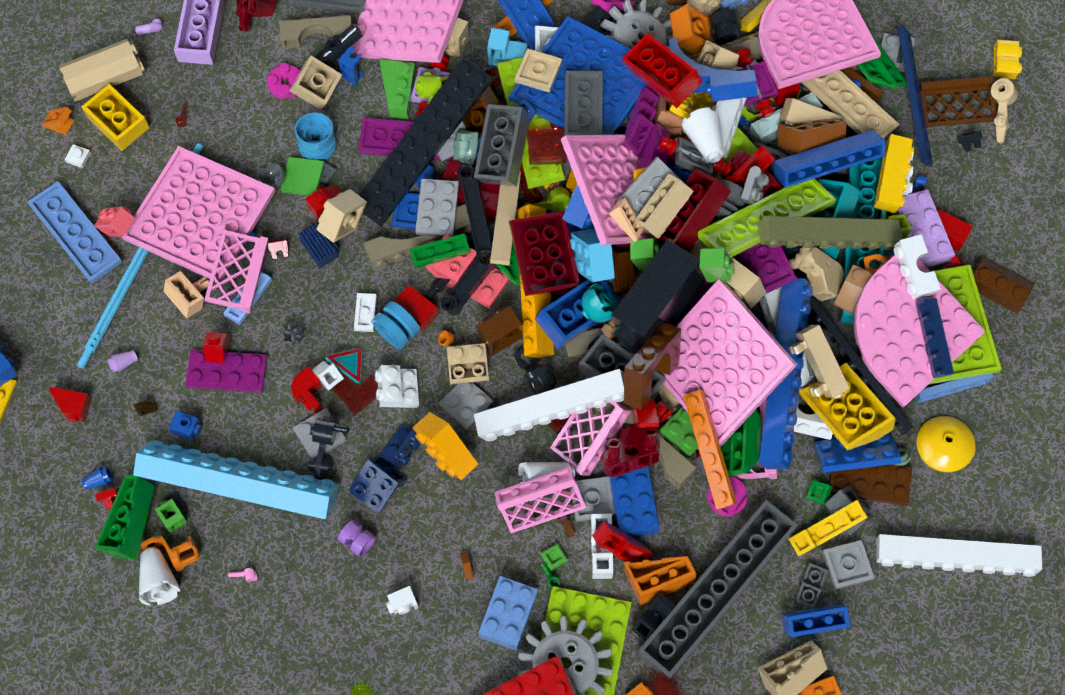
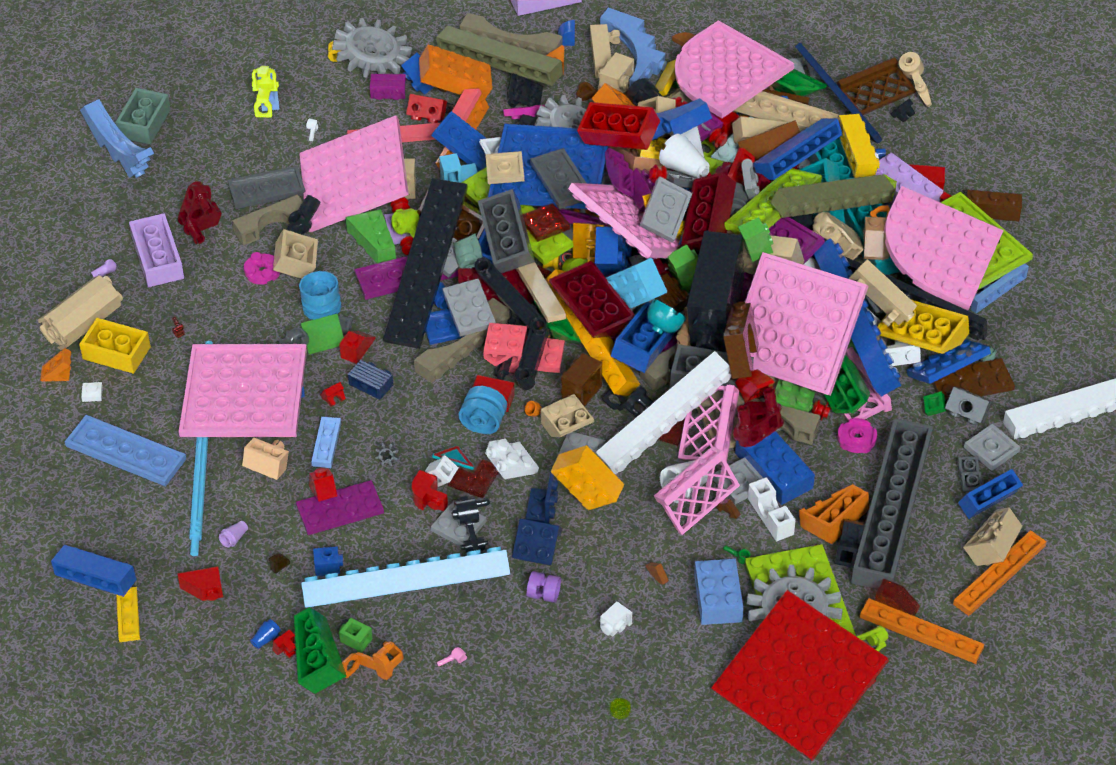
camera: 25 degrees left, 20 degrees down
(114, 221) = (164, 423): coral brick -> none
(156, 578) = (374, 688): white cone -> none
(252, 275) = (322, 403): bright pink fence -> none
(341, 215) = (382, 343): tan brick -> none
(348, 66) = (322, 232): blue hinge -> none
(365, 312) = (445, 415): white plate -> none
(439, 250) = (494, 332): green plate -> none
(554, 557) = (732, 537): bright green tile -> none
(621, 544) = (786, 495): red slope -> none
(625, 217) = (651, 231): light nougat slope -> none
(663, 205) = (684, 213): tan brick -> none
(710, 449) = (823, 398): orange plate -> none
(828, 528) = (960, 422): yellow slope -> none
(918, 282) = (909, 186): white arch -> none
(934, 337) = (965, 244): dark blue hinge -> none
(937, 451) = (1018, 333): yellow dish -> none
(1007, 59) = (896, 43): yellow brick -> none

